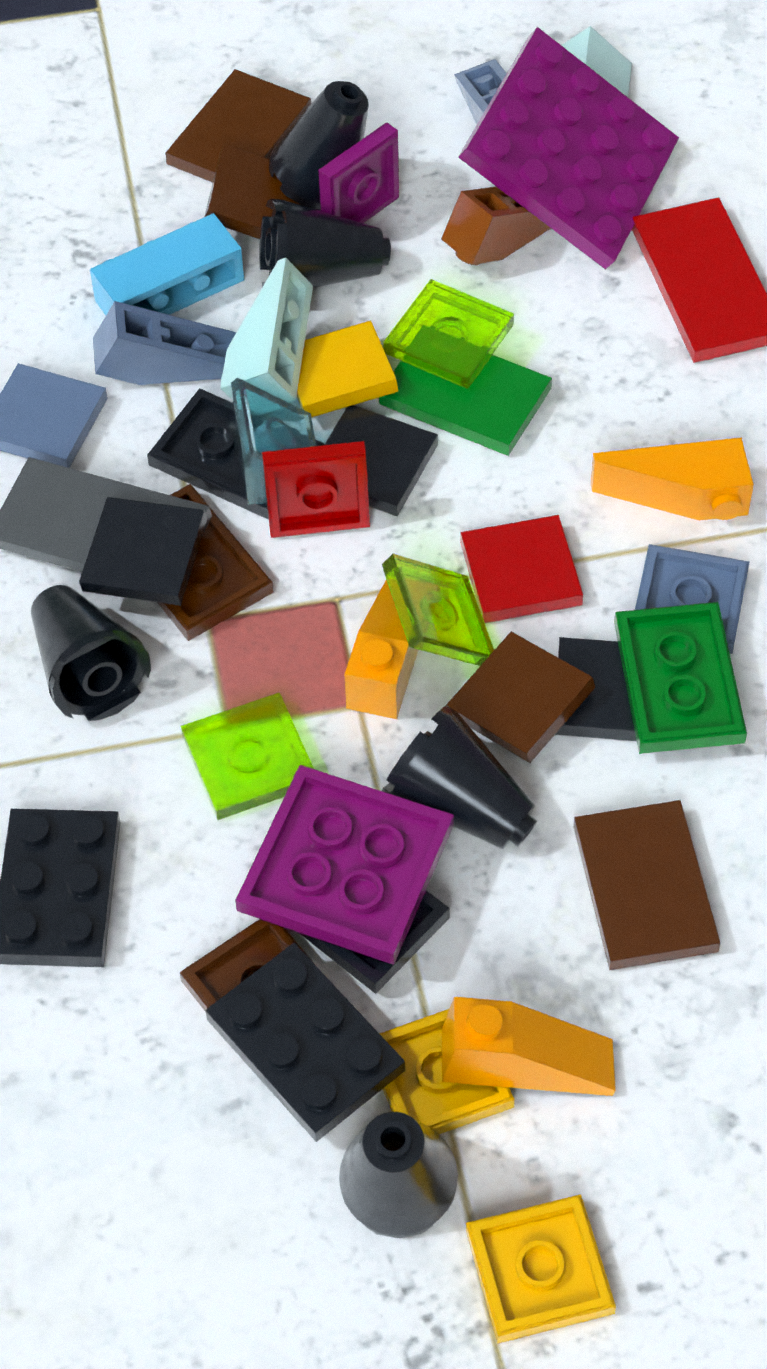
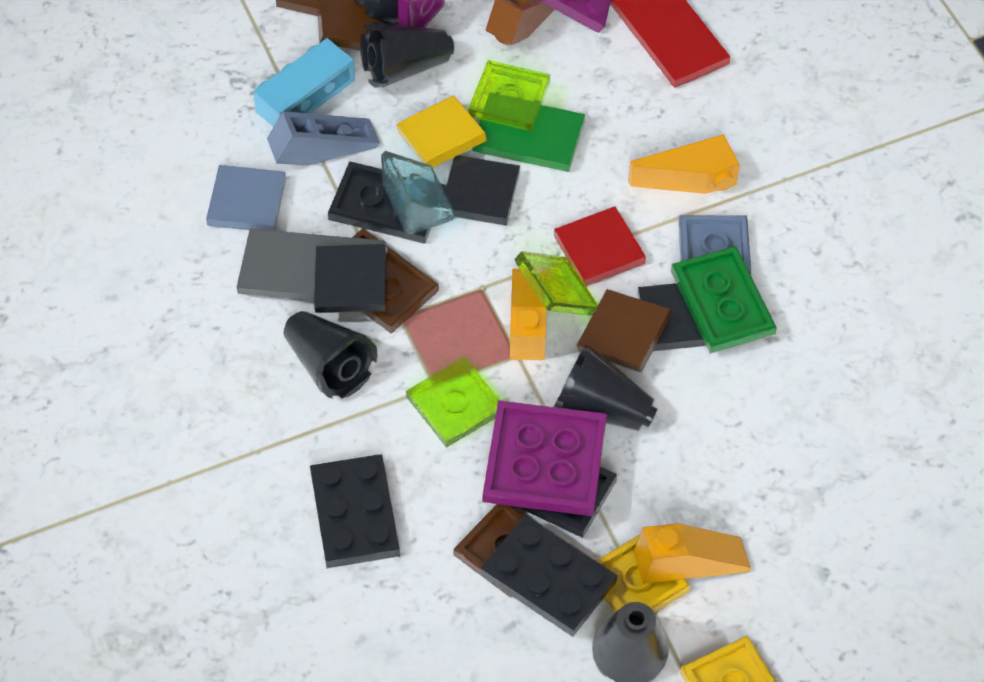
camera: 15 degrees left, 0 degrees up
(272, 335) = (391, 119): light aqua slope -> none
(316, 489) = (454, 217): red tile -> none
(646, 885) = (735, 436): reddish brown tile -> none

